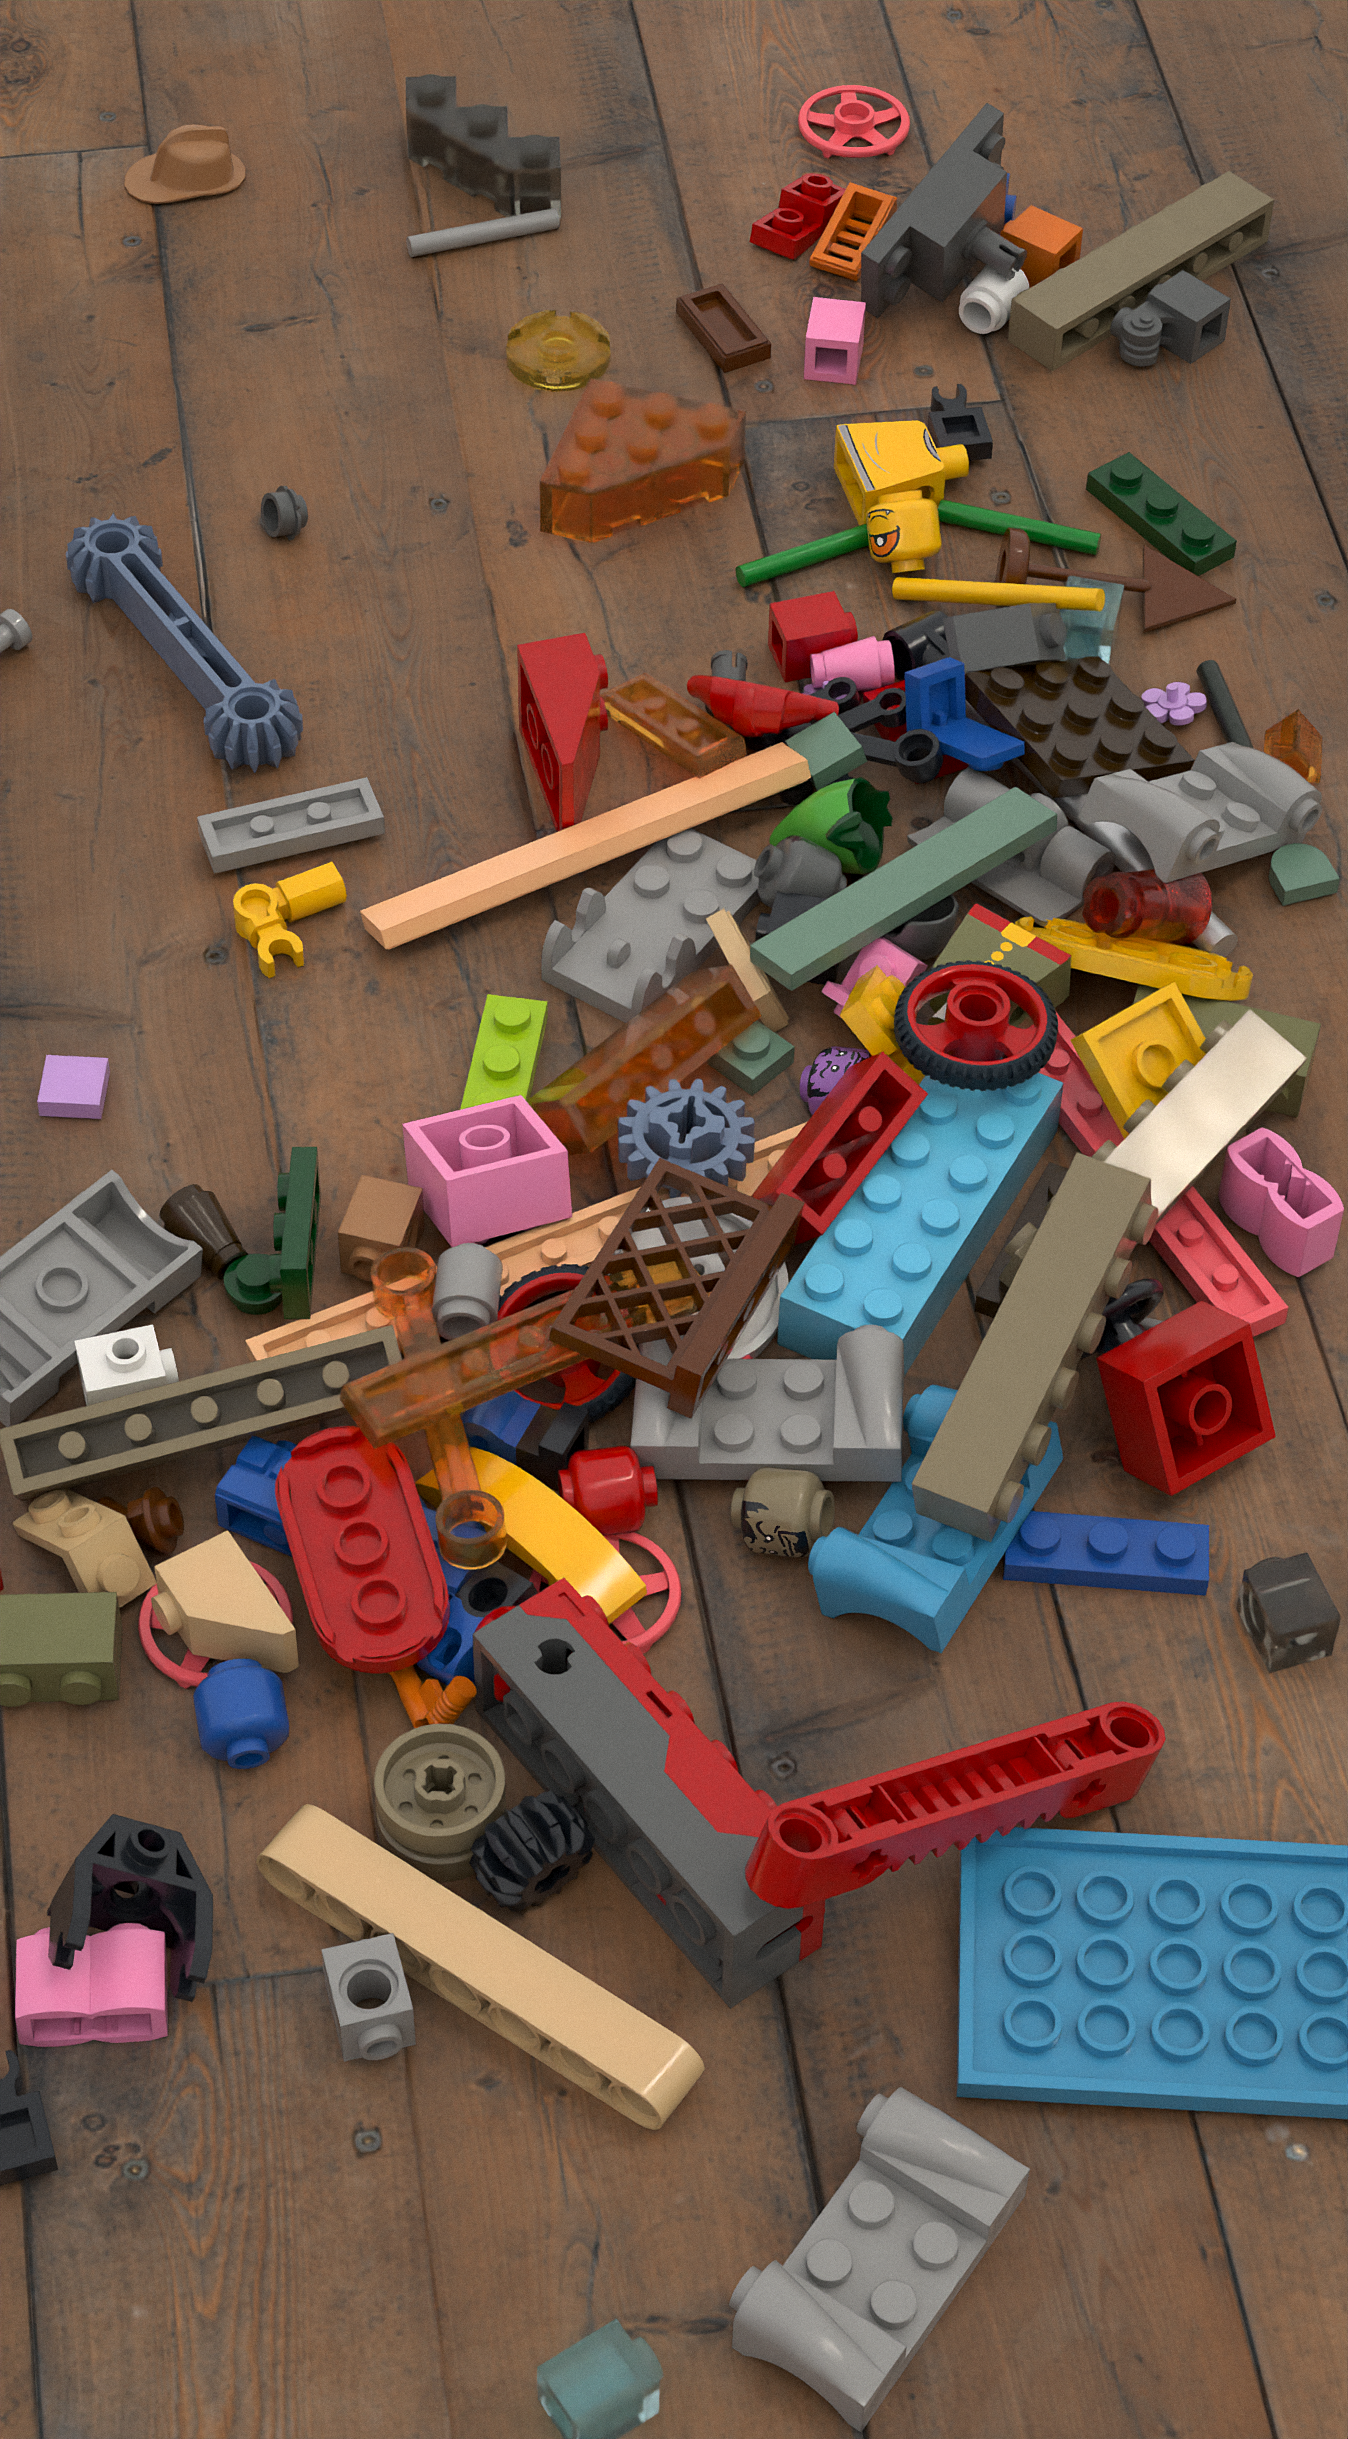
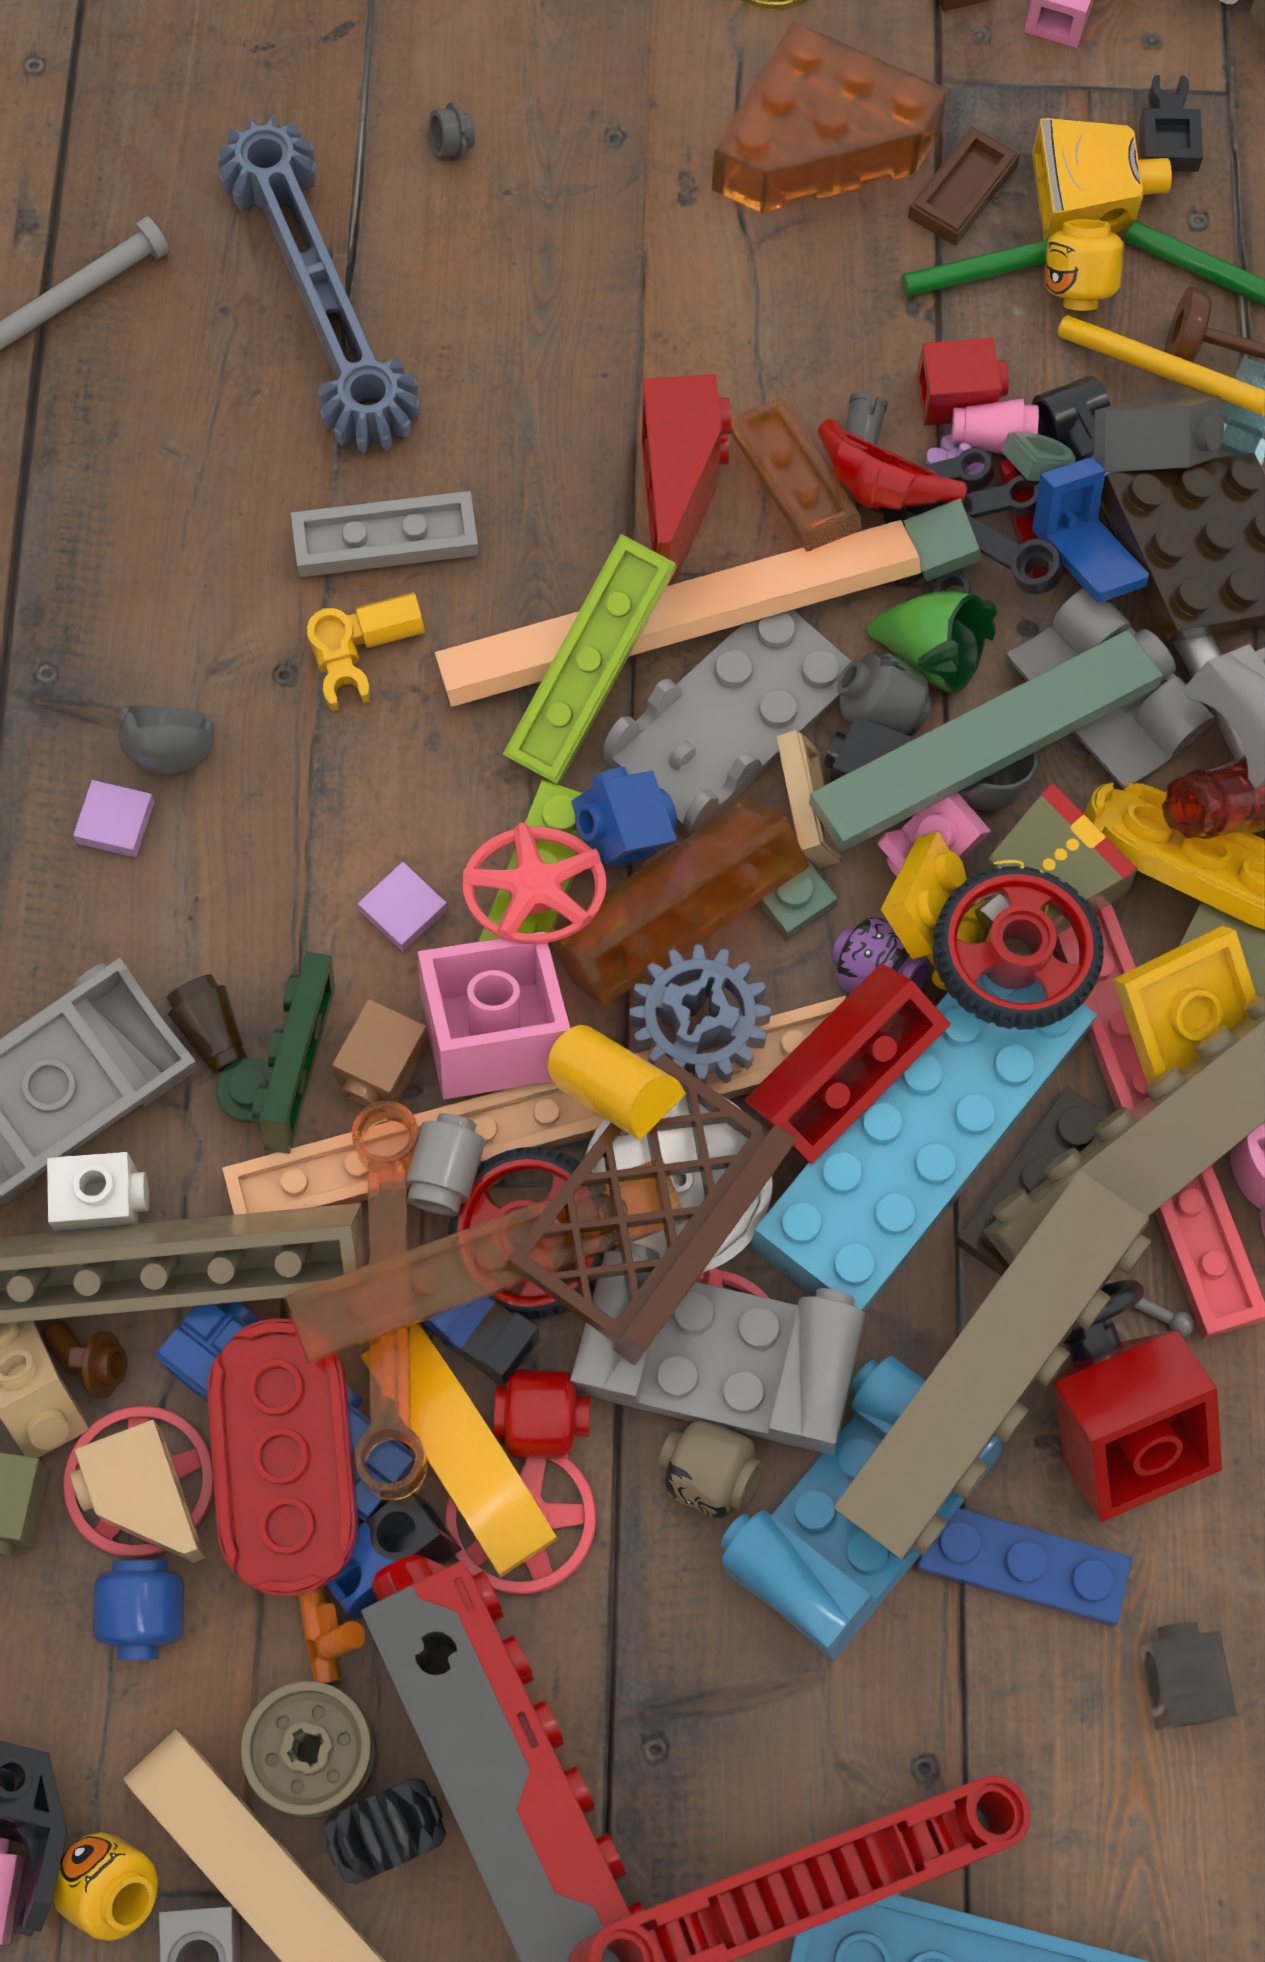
camera: 10 degrees right, 20 degrees up
(114, 1009) = (165, 738): none -> dark grey hair
(260, 1947) = (105, 1886): none -> yellow head
(373, 1116) = (402, 906): none -> lavender tile
(501, 1063) = (534, 884): none -> coral wheel
(514, 881) = (590, 659): none -> lime tile
(575, 1005) = (625, 817): none -> blue brick
(617, 1177) = (612, 1080): none -> yellow brick
(776, 496) = (963, 186): none -> reddish brown tile
(888, 672) = (1036, 454): none -> sand green tile

